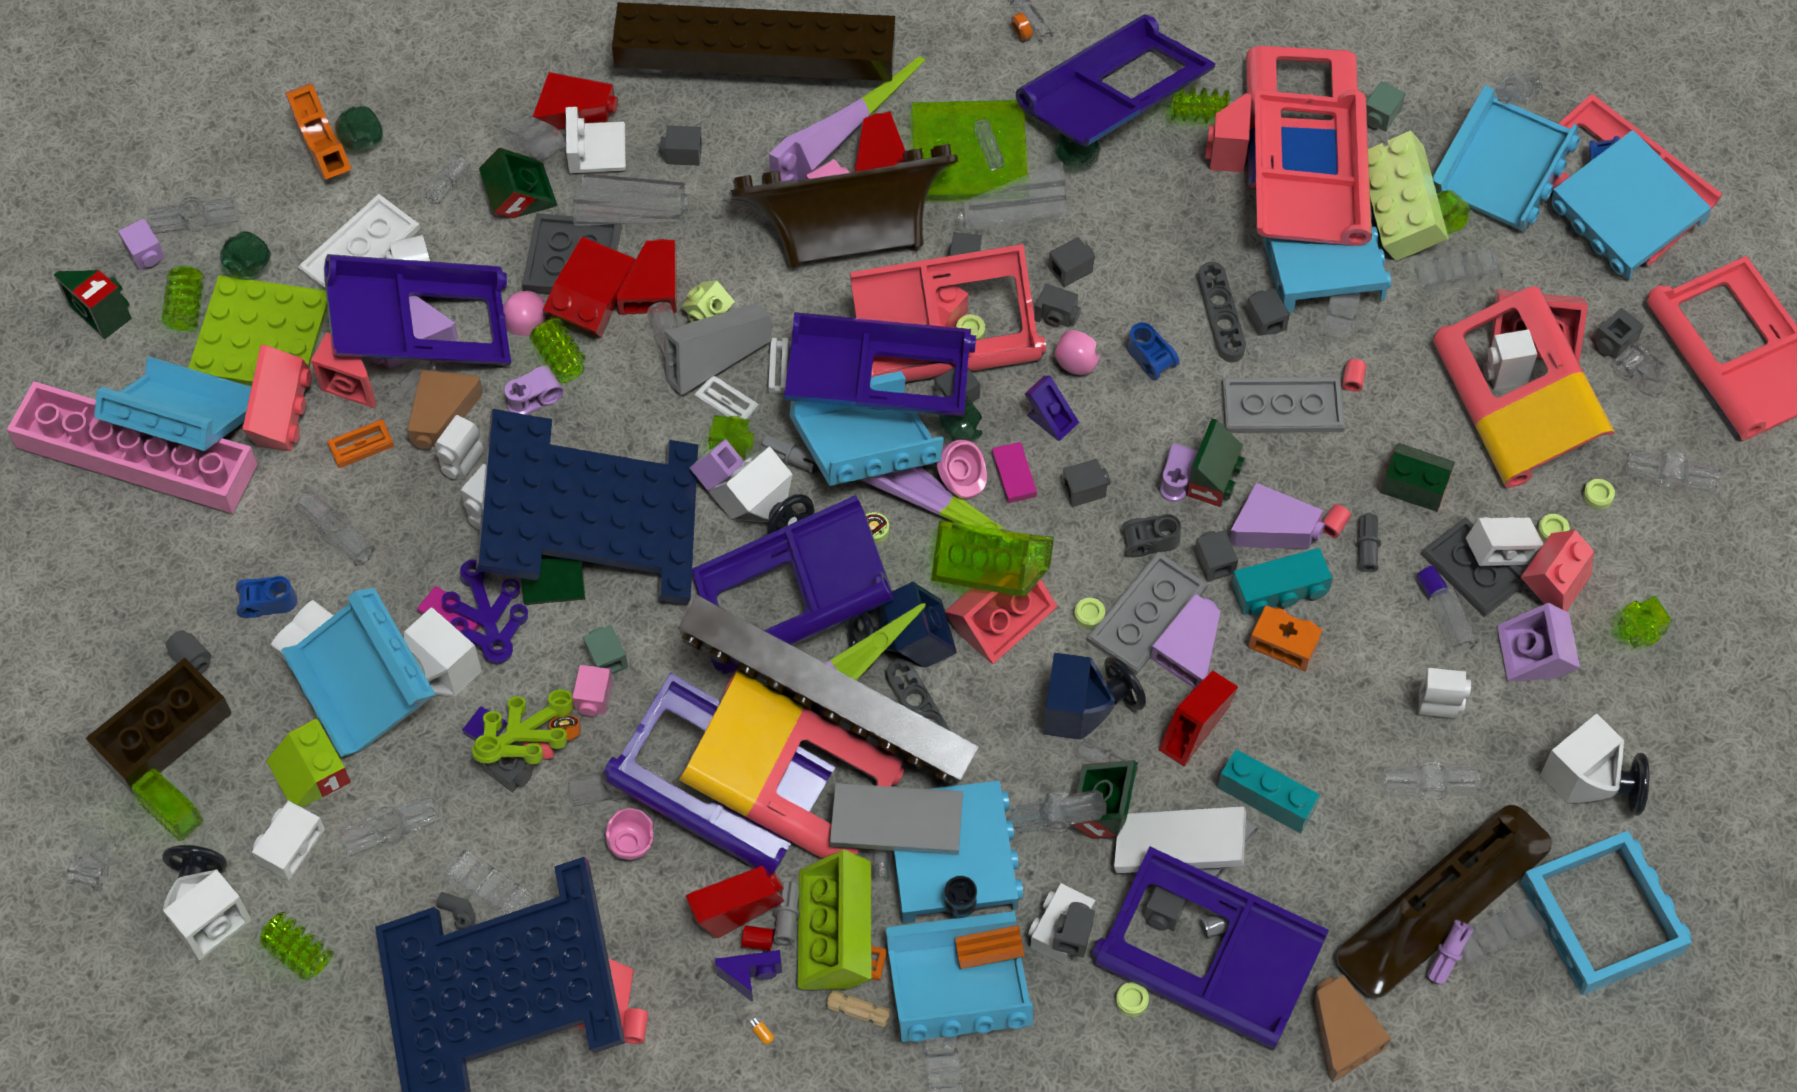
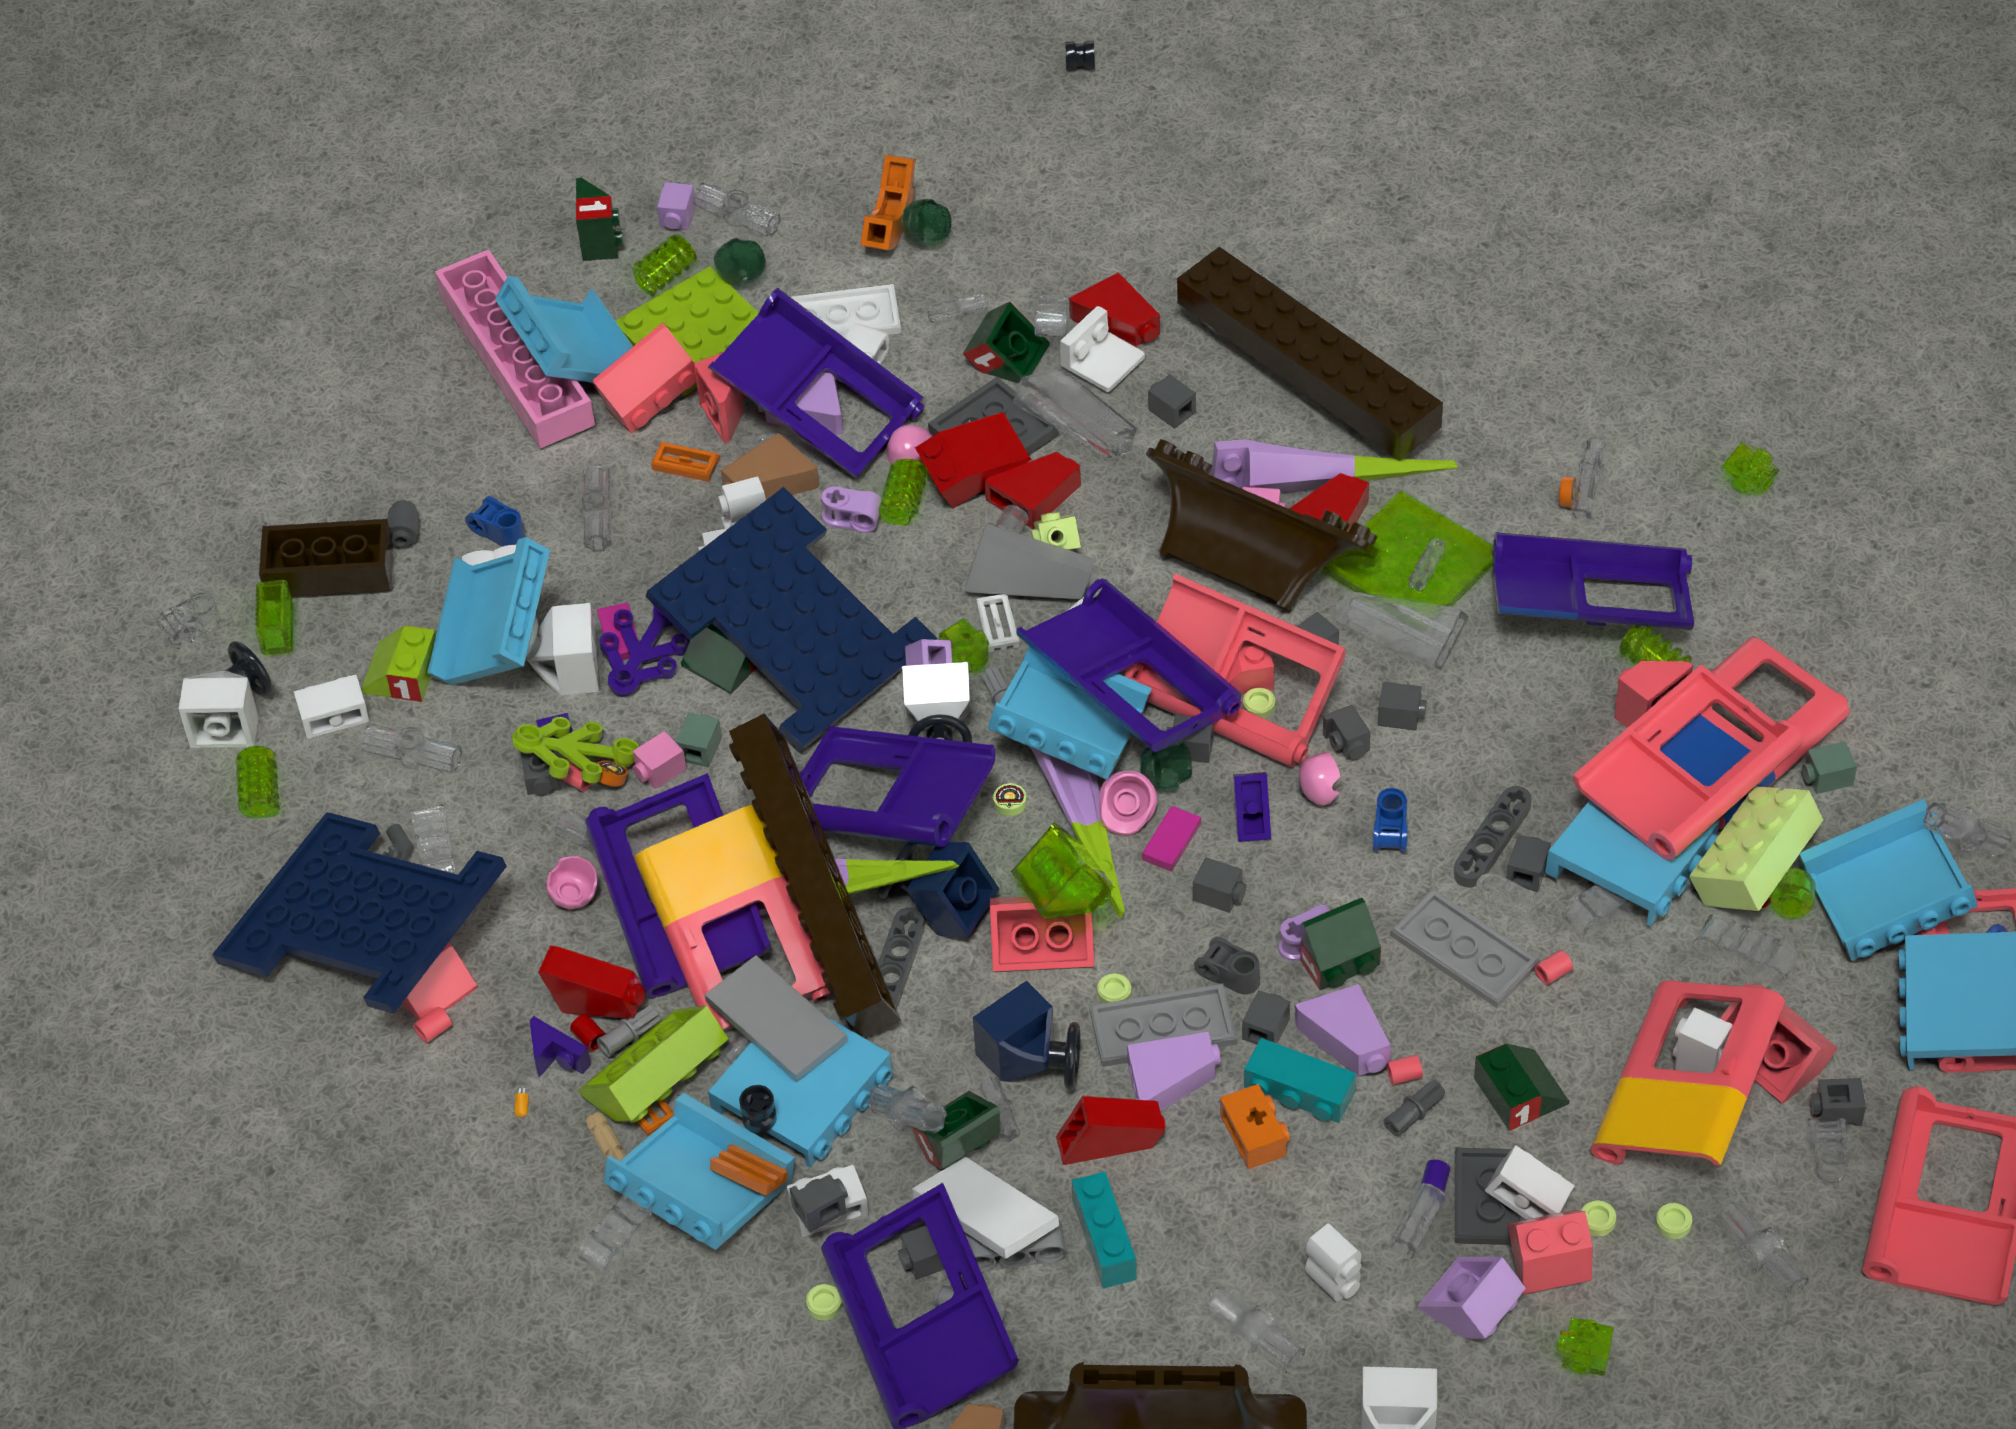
camera: 45 degrees right, 10 degrees down
(1076, 155) = (1502, 627): clear green hair -> none

